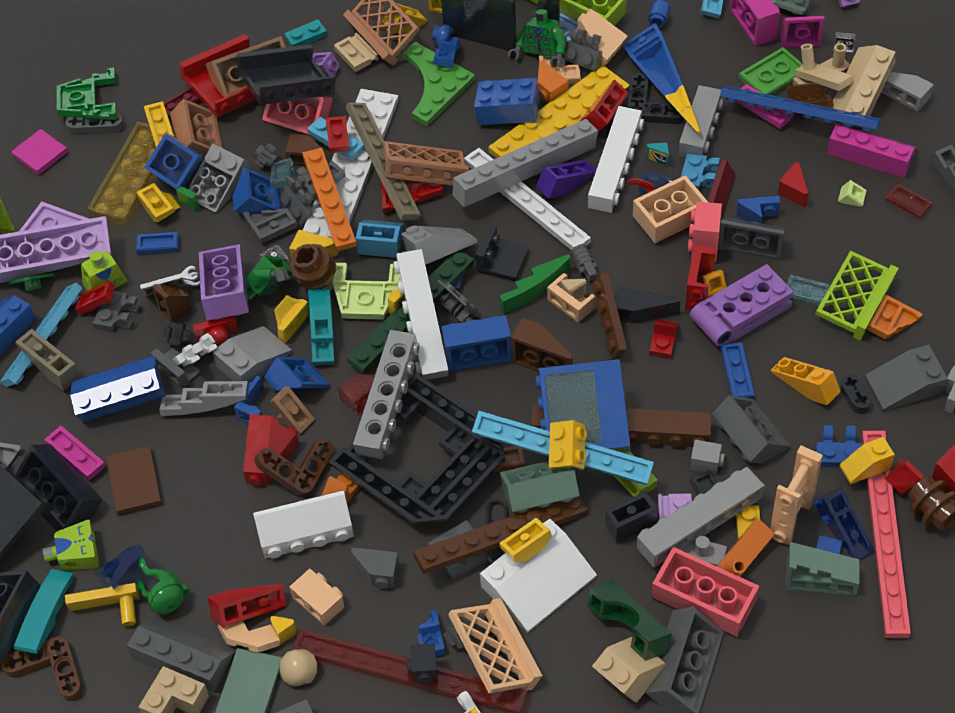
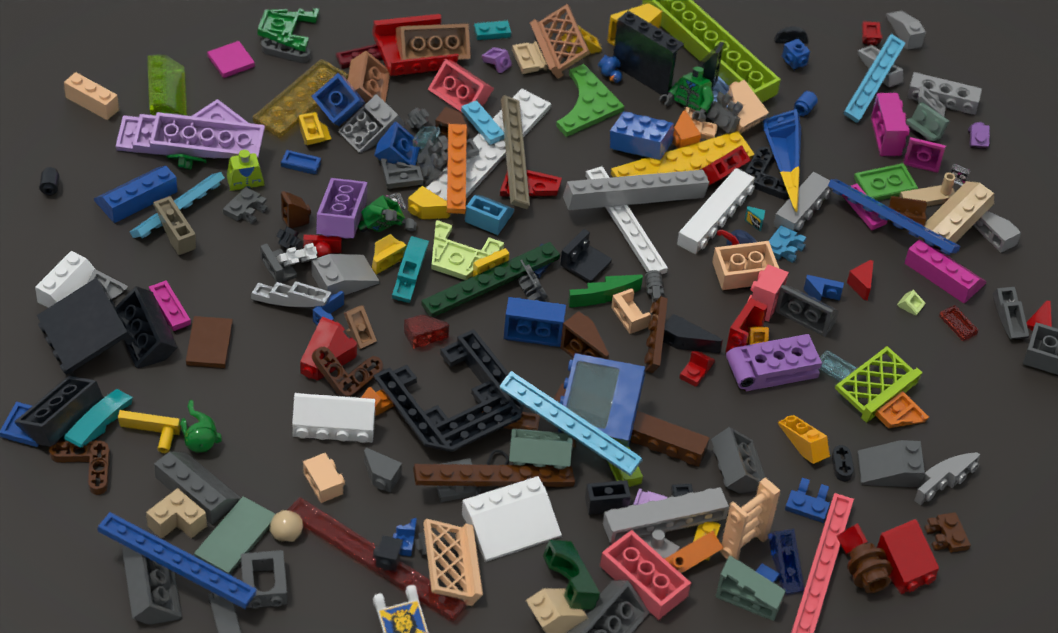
camera: 10 degrees right, 5 degrees down
(74, 548) = (141, 378): lime torso -> none
(95, 297) = (232, 188): red plate -> none
(114, 570) = (164, 405): clear blue plate -> none
(117, 389) = (222, 266): blue slope -> none
(158, 121) = (338, 61): yellow plate -> none
(179, 280) = (305, 194): white flag -> none
(187, 198) = (339, 133): green tile -> none
(245, 603) = (263, 463): red slope -> none
(256, 640) = (262, 495): light nougat tile -> none
(284, 74) = (458, 56): black panel -> none
(284, 628) = (286, 492): yellow slope -> none
(295, 373) = (374, 299): blue slope -> none
(313, 266) = (421, 218): reddish brown piece -> none
(337, 134) = (484, 118): red plate -> none
(397, 344) = (441, 337): light grey brick -> none
(418, 169) = (542, 167): nougat fence -> none
(421, 313) = (496, 285): white brick -> none
(436, 241) = (528, 230): light grey slope -> none
(446, 53) = (605, 80): blue slope -> none
(526, 541) = (510, 486): yellow slope -> none
(563, 178) = (664, 213): dark purple slope -> none
(567, 445) = (574, 420): yellow bracket -> none
(574, 287) = (636, 303): tan slope -> none
(706, 457) = (692, 472): light grey brick -> none
(722, 185) = (799, 261): dark red tile -> none
(737, 370) = (749, 412): blue tile -> none
(821, 74) = (923, 193): tan piece -> none
(868, 461) = (827, 516): yellow slope -> none

